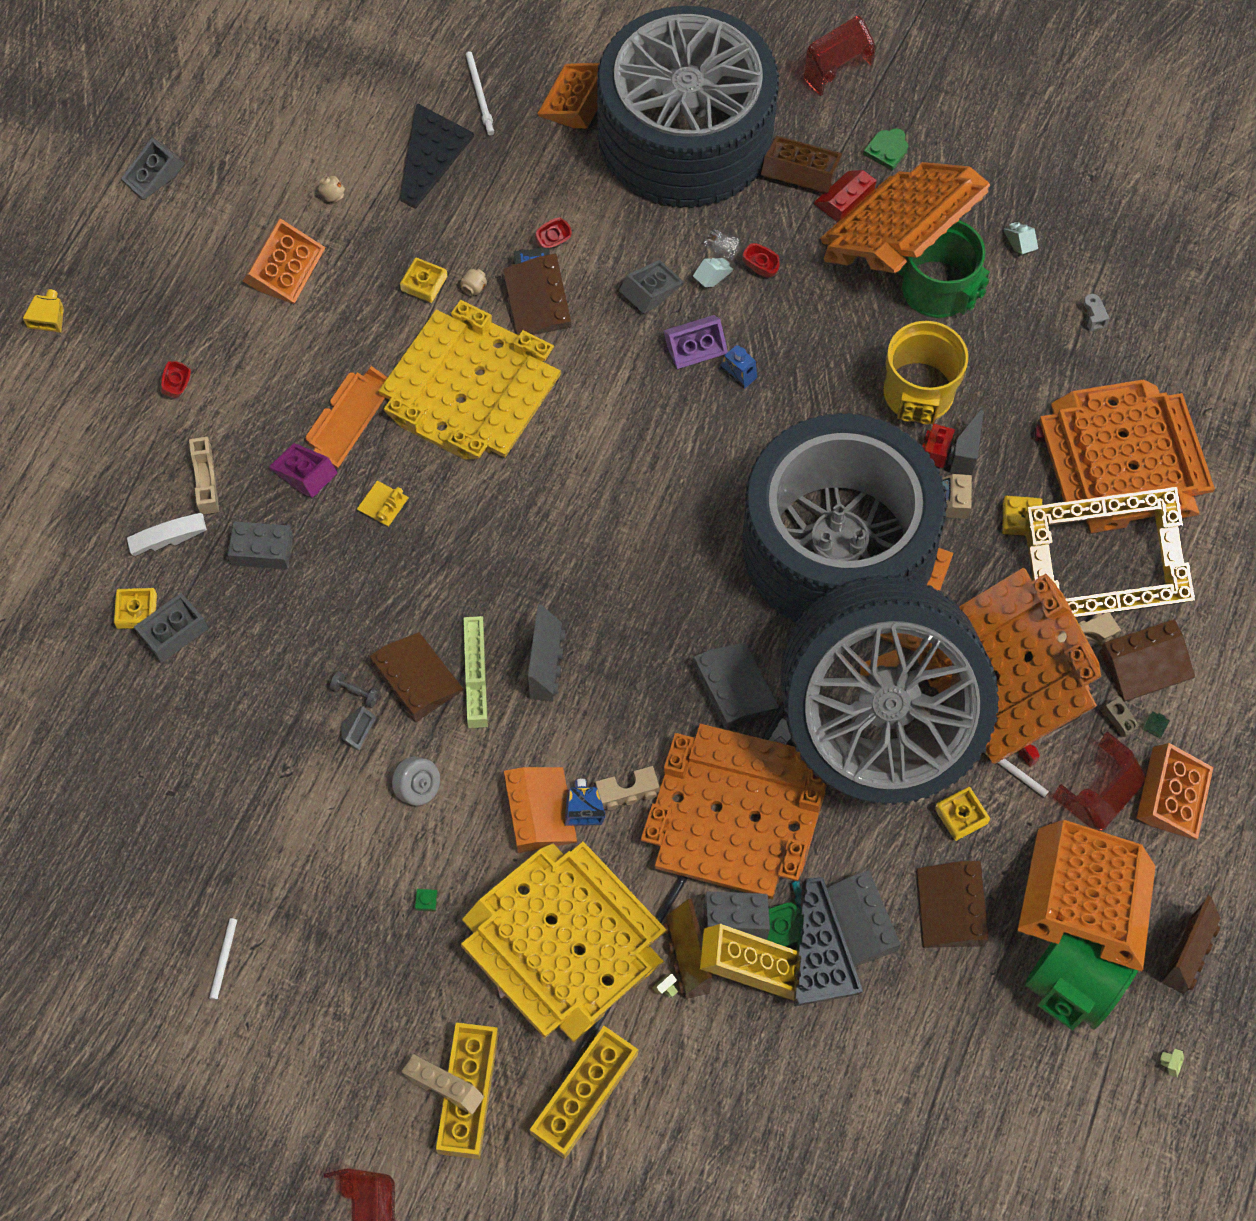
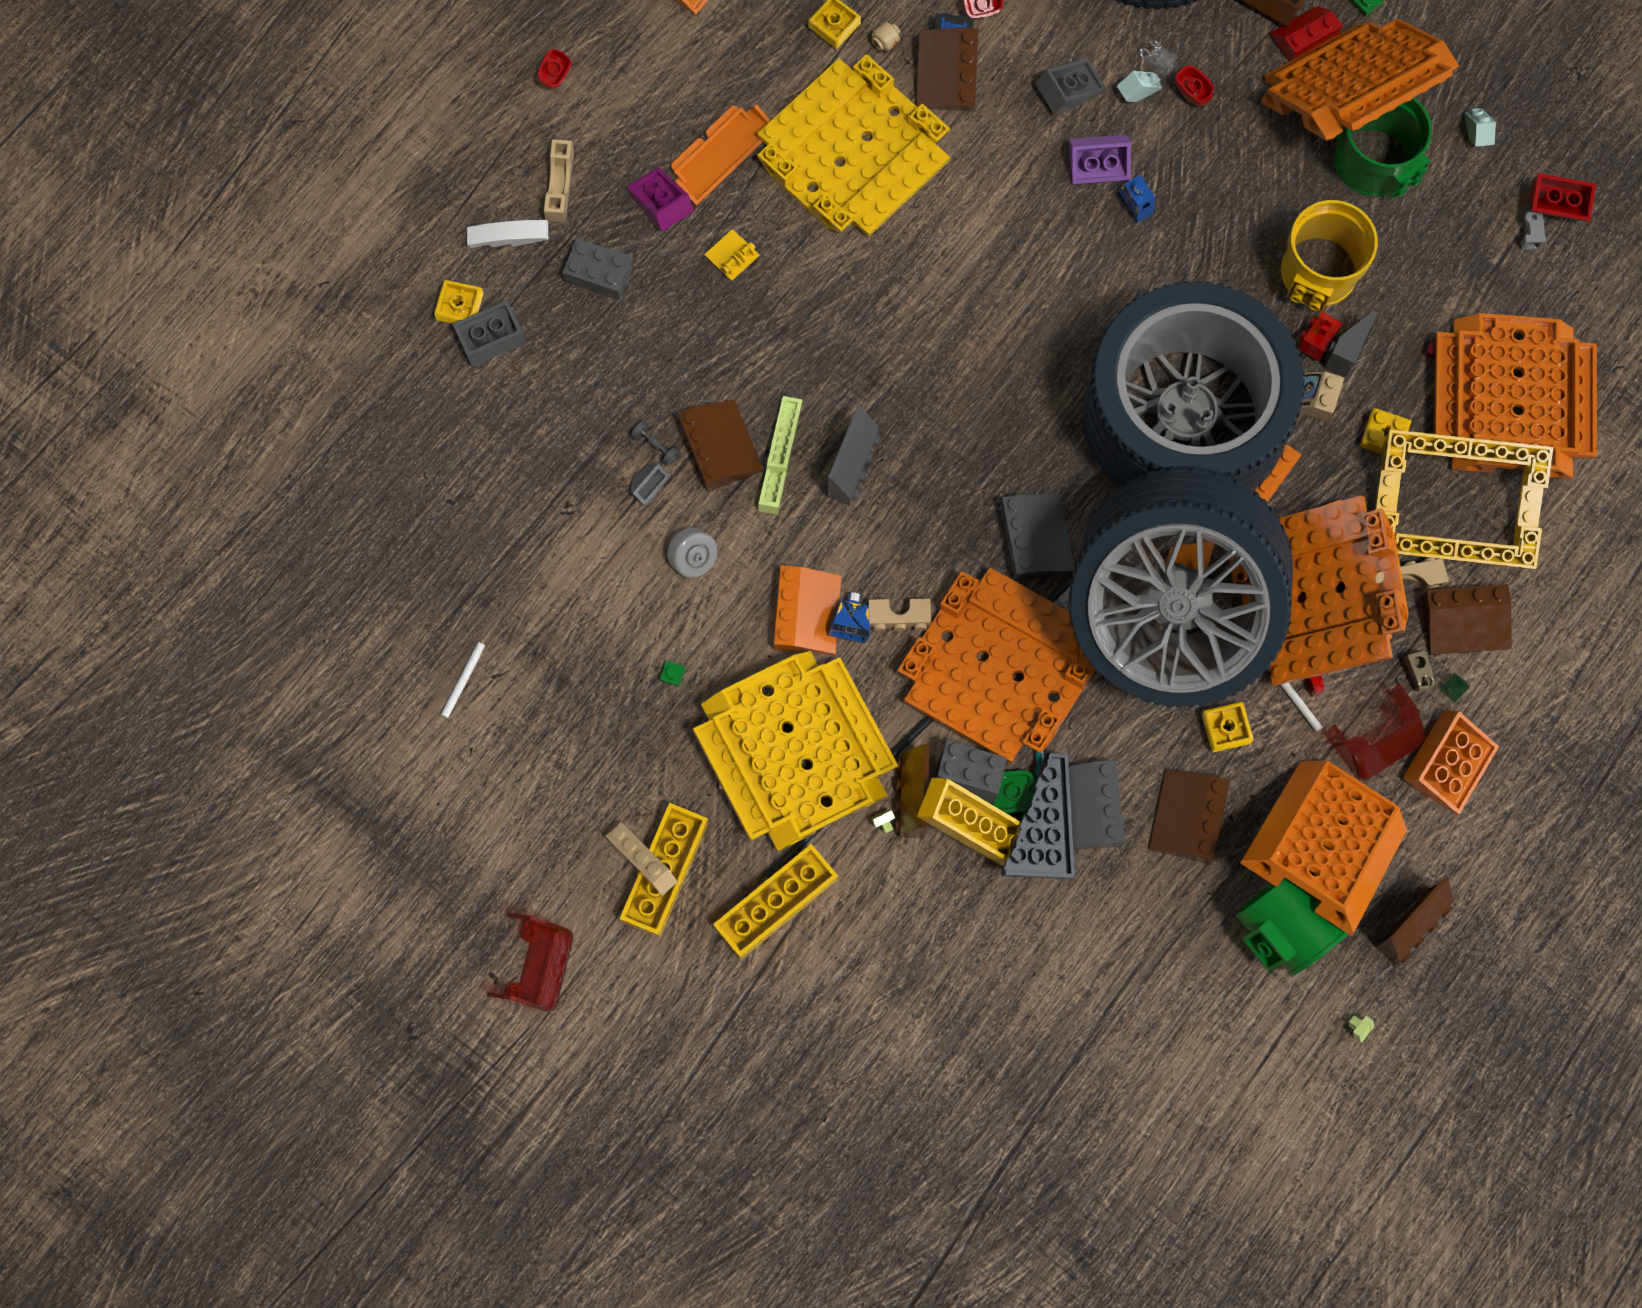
camera: 15 degrees right, 10 degrees up
(1111, 277) = (1562, 197): none -> red slope

